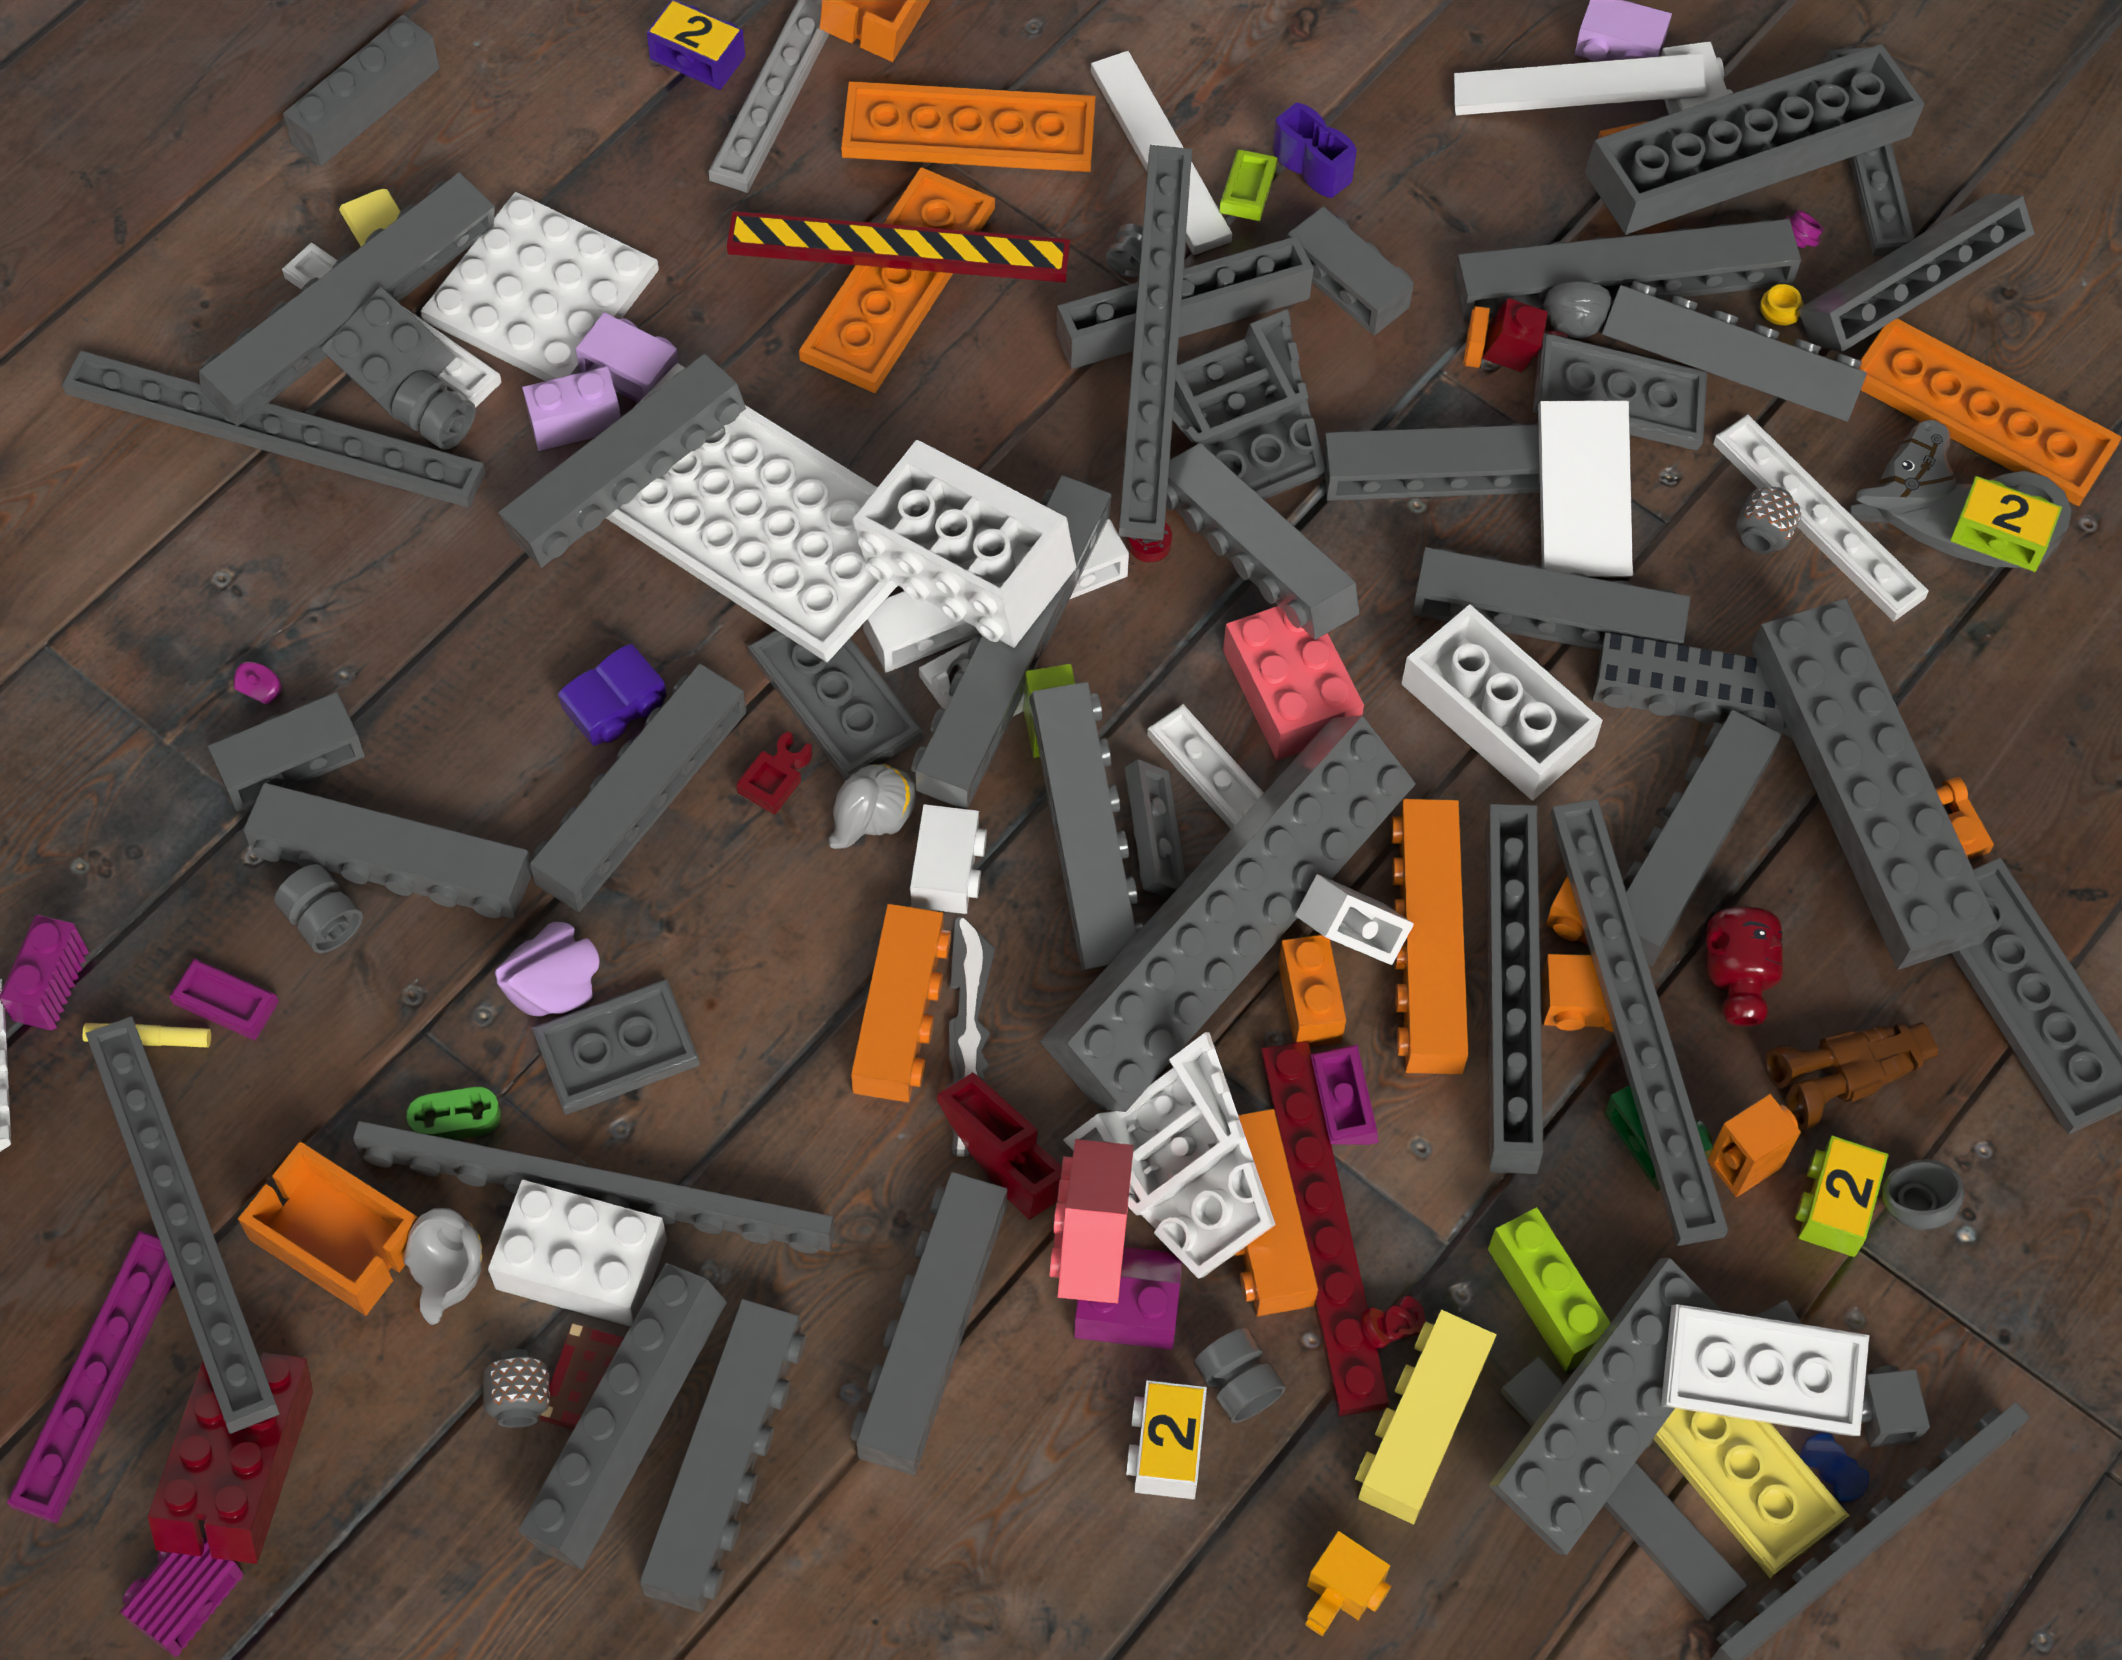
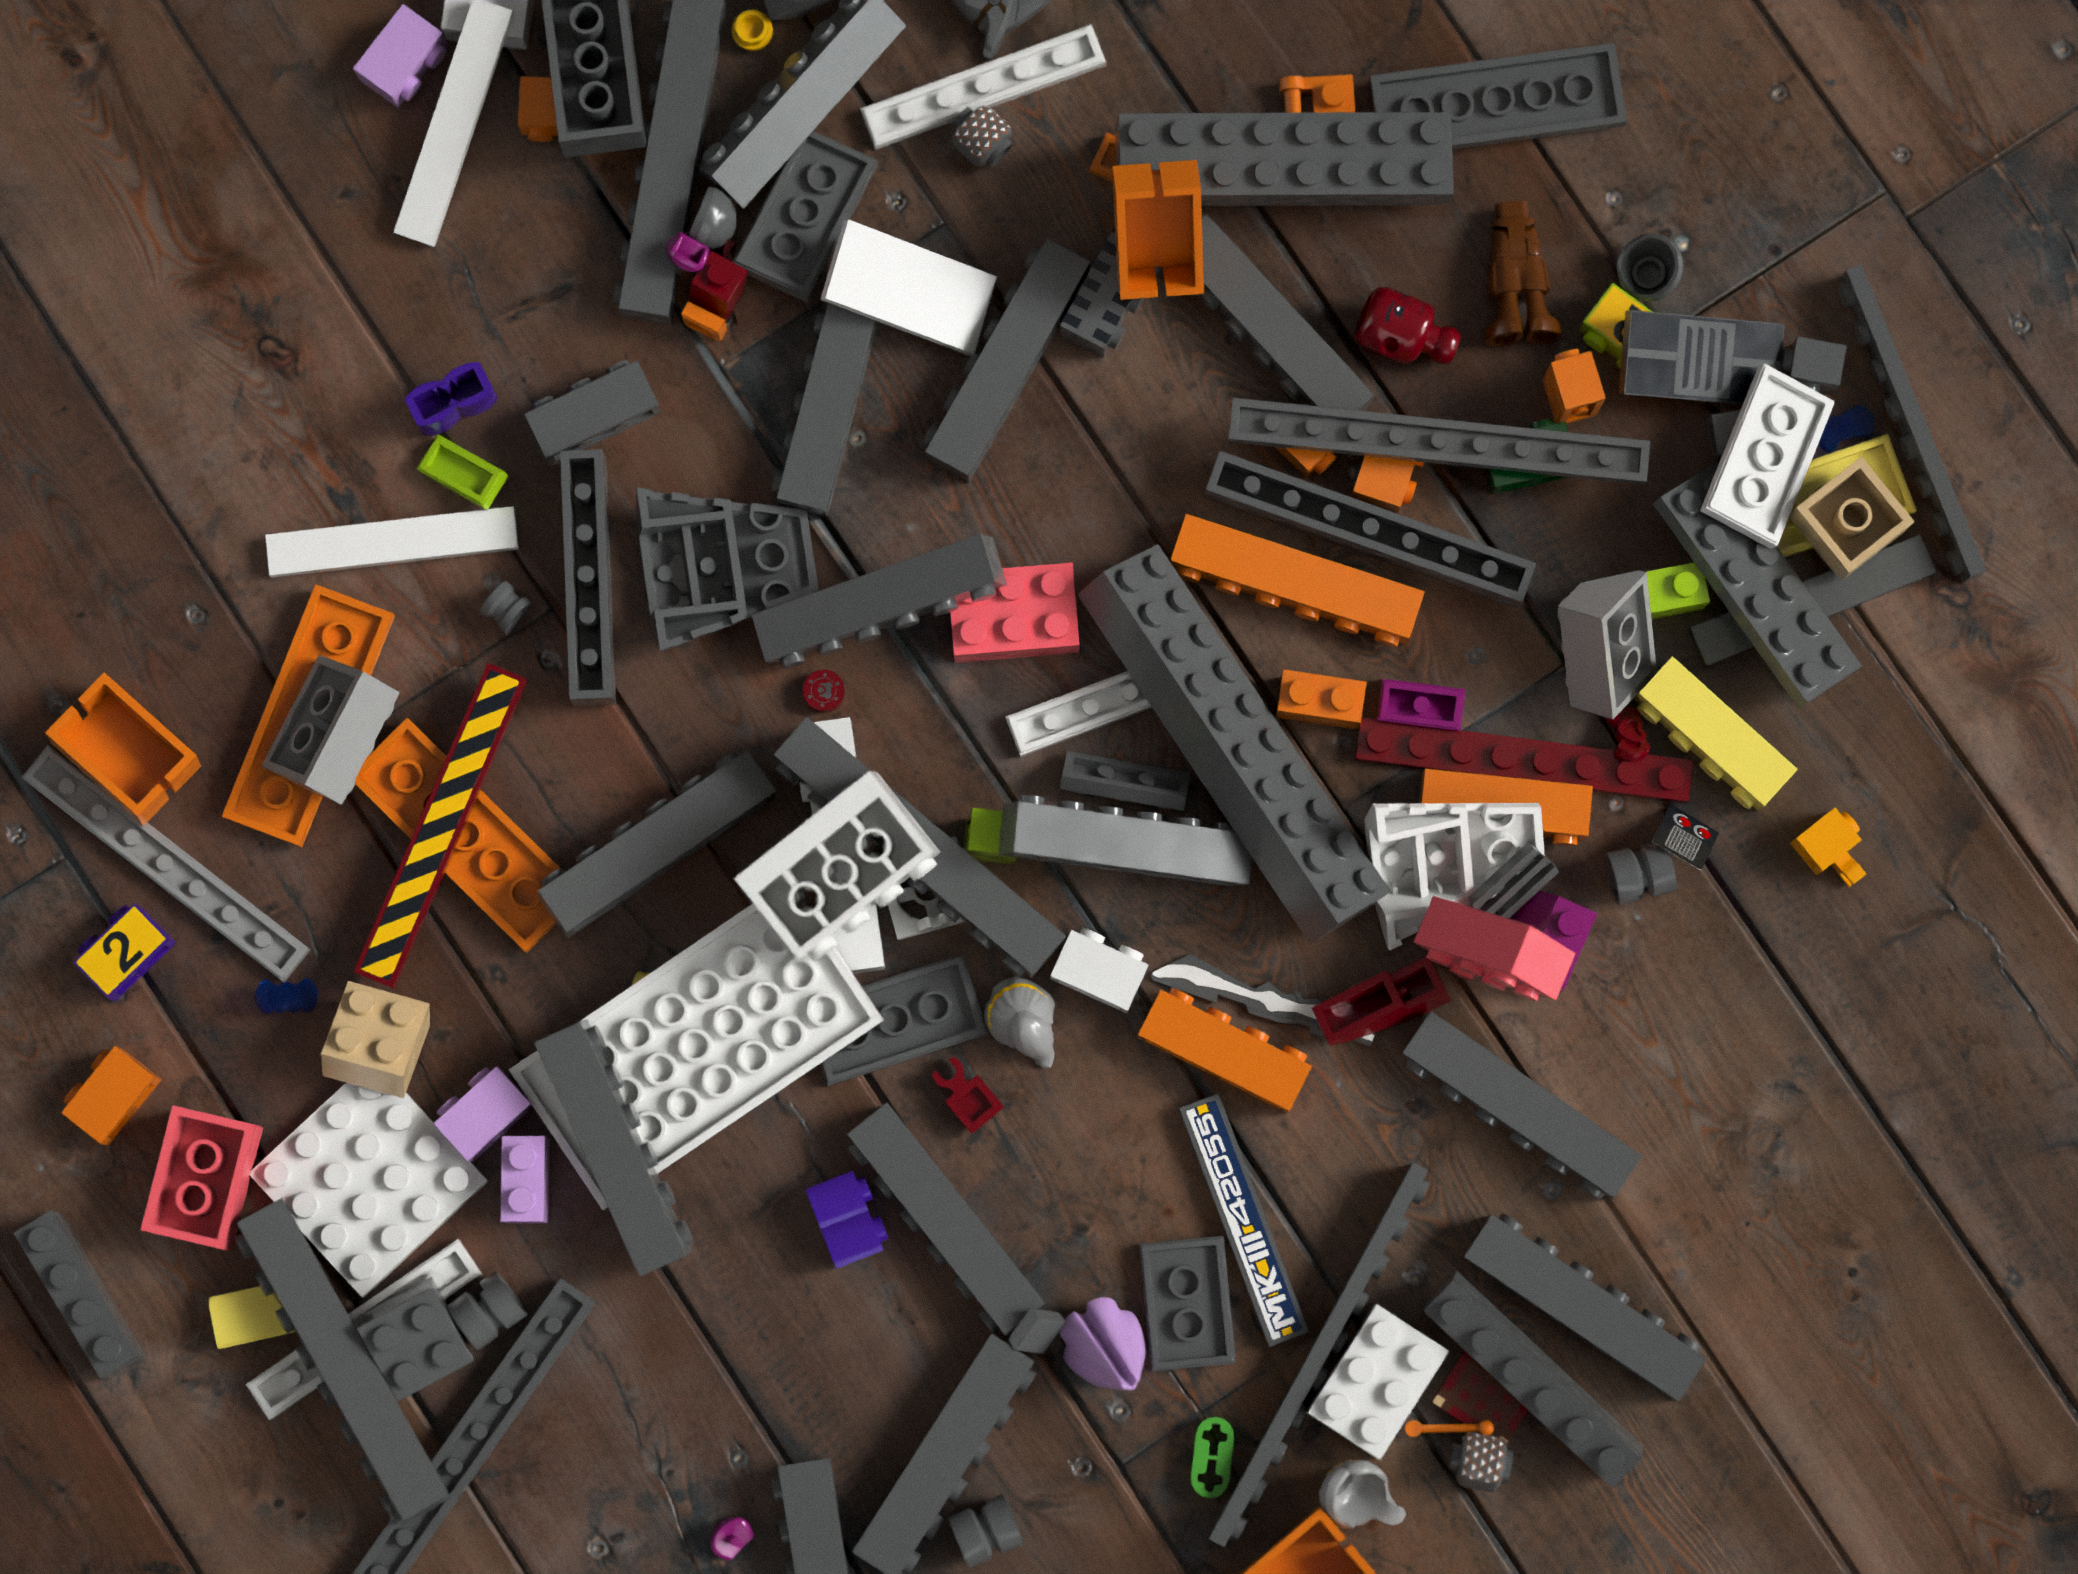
camera: 70 degrees left, 20 degrees up
(500, 146) = (201, 1178): none -> coral brick
(539, 1318) = (1415, 1428): none -> orange hinge
(542, 895) = (1036, 1331): none -> dark grey tile
(557, 68) = (110, 1094): none -> orange brick
(672, 246) = (375, 1039): none -> tan brick
(694, 177) = (286, 996): none -> clear blue piece
(721, 1077) = (1243, 1220): none -> tile
(930, 411) = (656, 843): none -> dark grey brick
(957, 135) = (331, 729): none -> light grey slope
(1143, 1224) = (1517, 888): none -> dark grey tile
(1155, 344) = (641, 620): dark grey plate -> none
(1169, 1439) = (1674, 946): brick -> none
(1296, 1412) = (1685, 837): none -> black sticker
(1354, 919) = (1277, 643): white brick -> none
(1486, 1251) = (1607, 642): none -> light grey slope
(1501, 702) = (1097, 440): white brick -> none
(1536, 288) = (687, 252): none -> magenta piece
(1731, 1484) = (1851, 518): none -> tan brick
(1741, 662) = (1158, 227): none -> orange piece
(1846, 1263) = (1695, 356): none -> black tile

